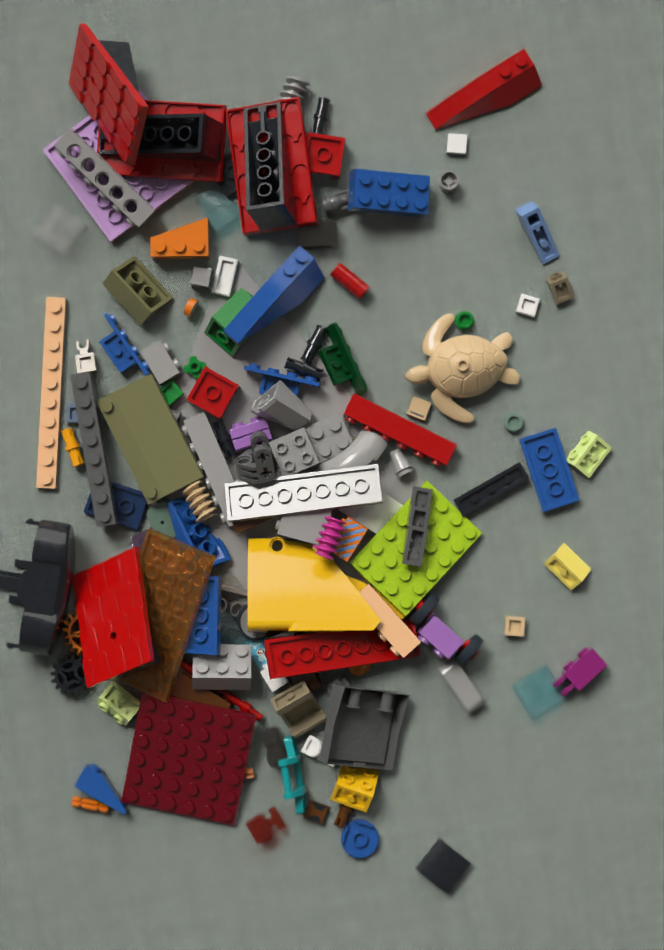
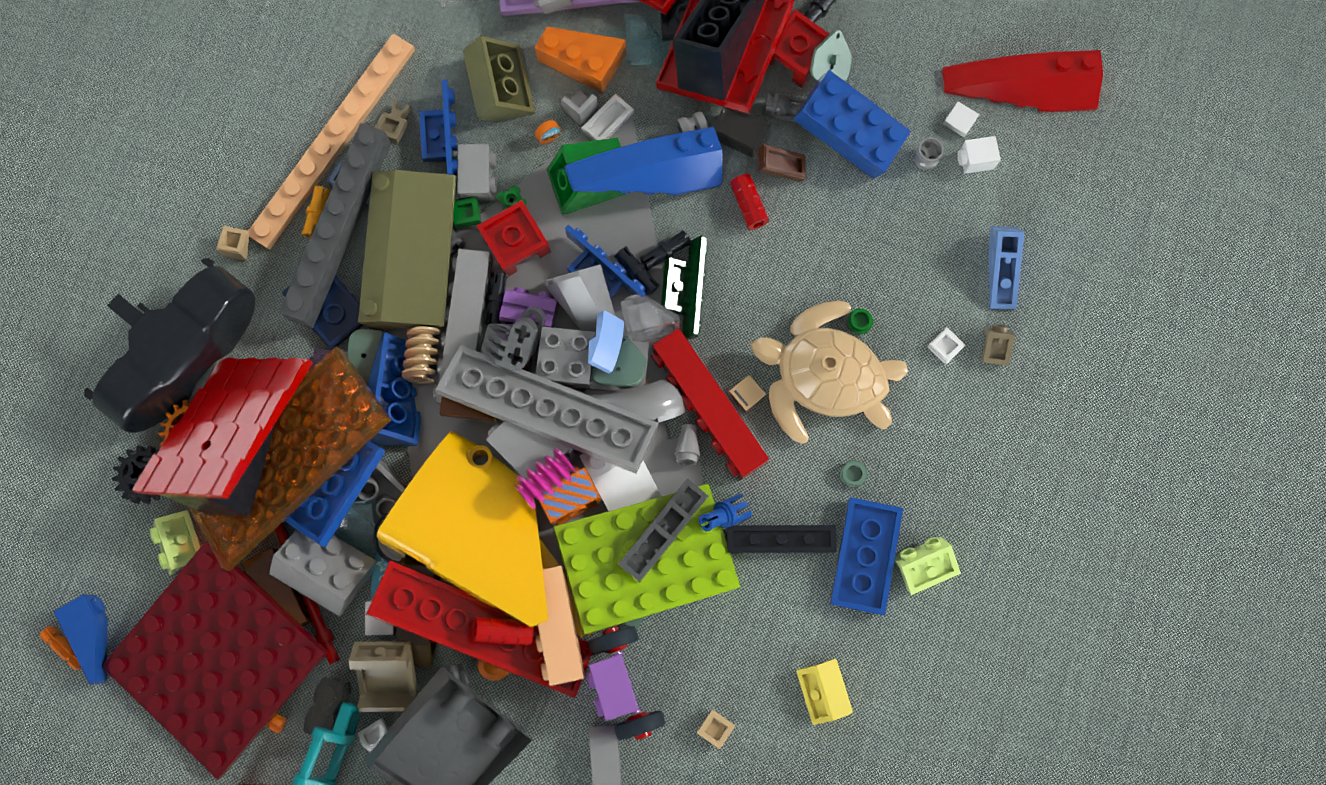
camera: 30 degrees right, 10 degrees down
(32, 497) = (233, 243): none -> tan slope
(284, 250) = (693, 123): none -> light grey wheel
(317, 433) = (606, 345): none -> light blue slope
(328, 433) = (630, 364): none -> sand green piece
(329, 399) = (647, 319): none -> clear slope
(350, 153) = (832, 53): none -> piece
(355, 643) = (501, 631): none -> red axle
(357, 243) = (782, 163): none -> reddish brown tile
(448, 494) = (725, 514): none -> blue arm
(481, 164) = (979, 155): none -> white brick

